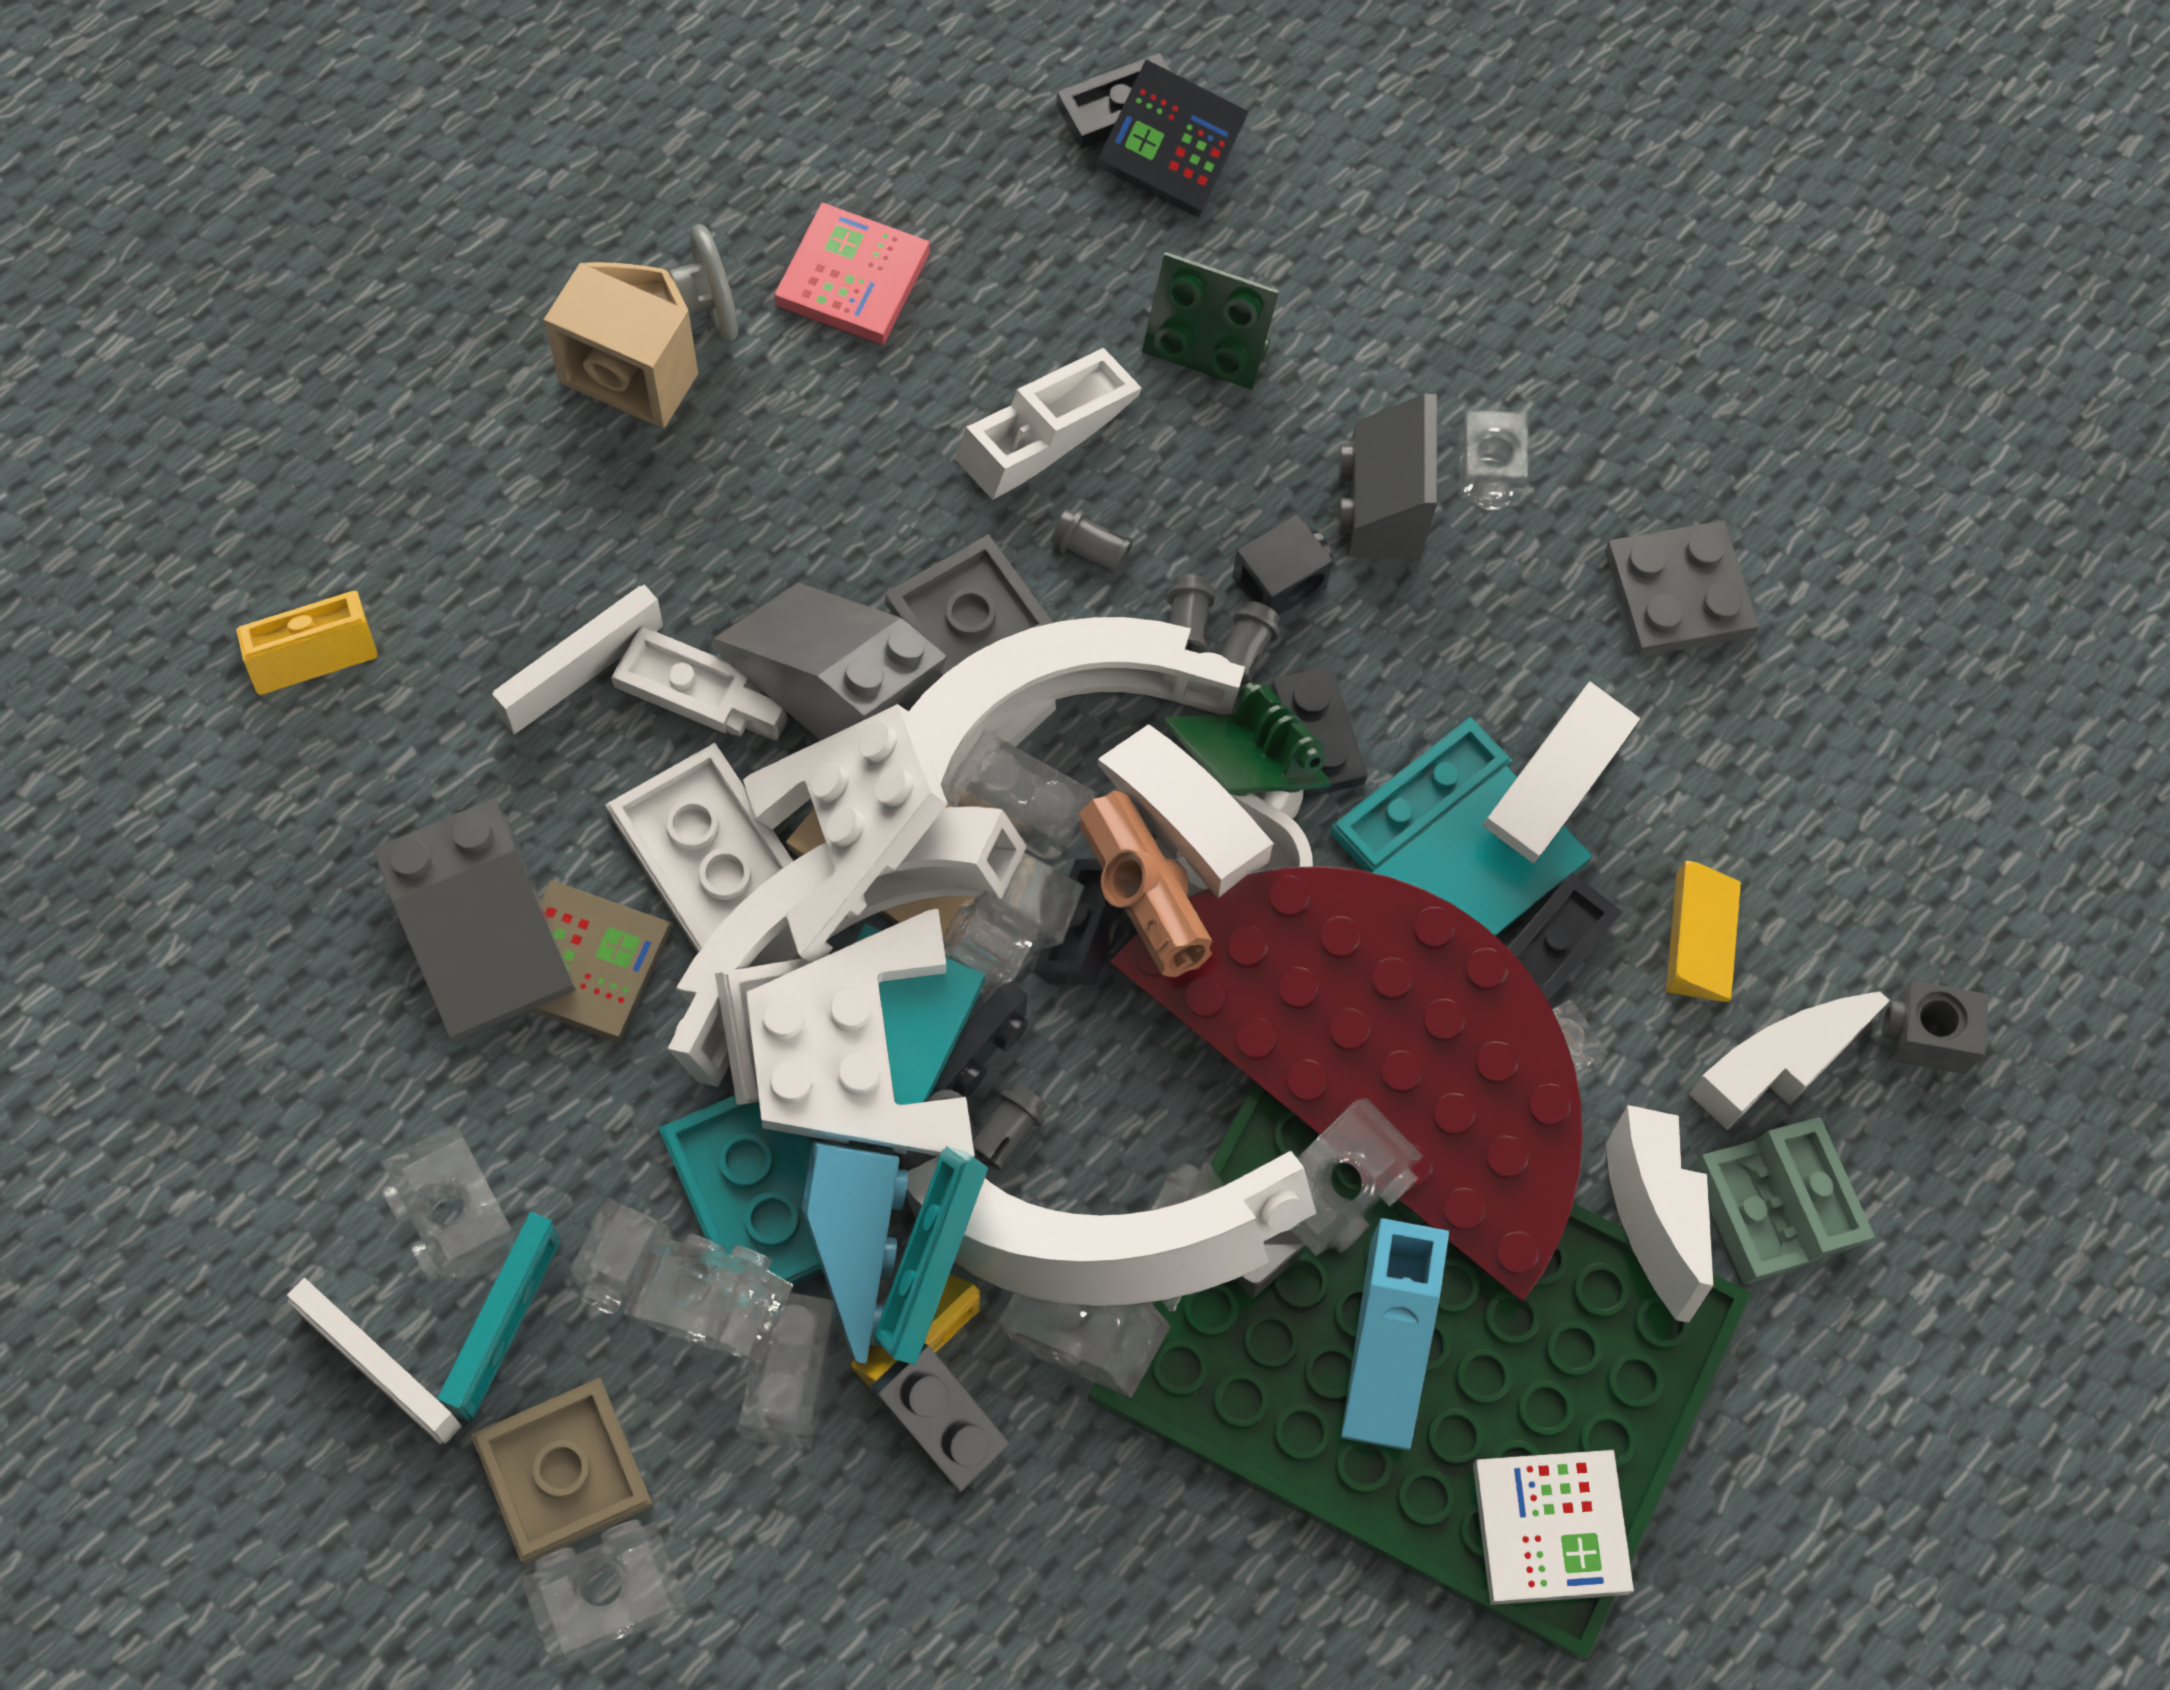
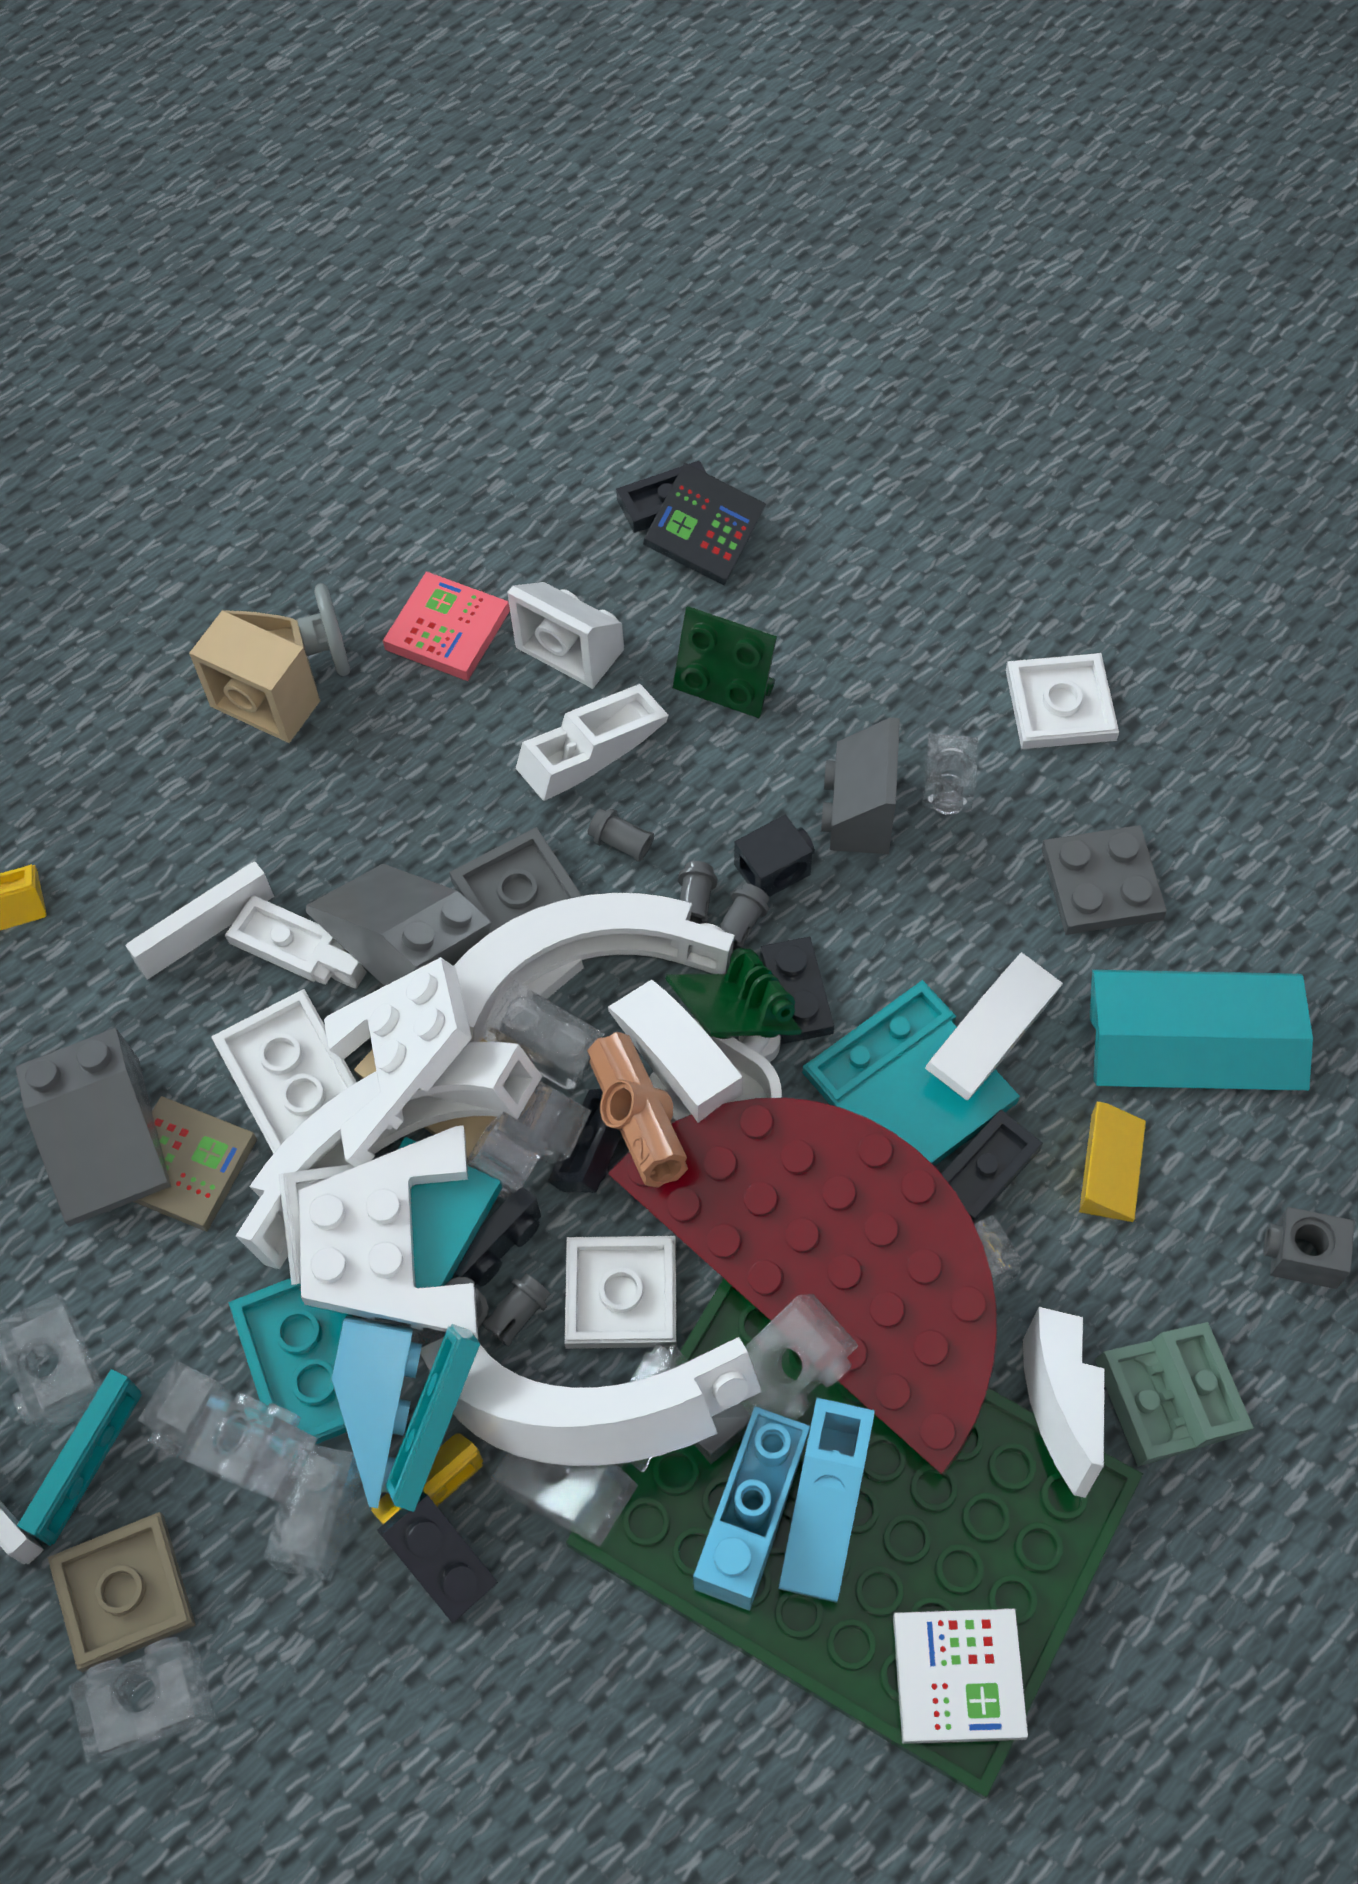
camera: 10 degrees right, 5 degrees down
(1006, 282) = (564, 631): none -> white slope
(1130, 1102) = (620, 1292): none -> white tile
(1308, 1348) = (751, 1509): none -> medium azure slope
(1623, 363) = (1061, 701): none -> white tile
(1784, 1056) = (1178, 1268): white slope -> none
(1803, 771) = (1201, 1030): none -> teal slope

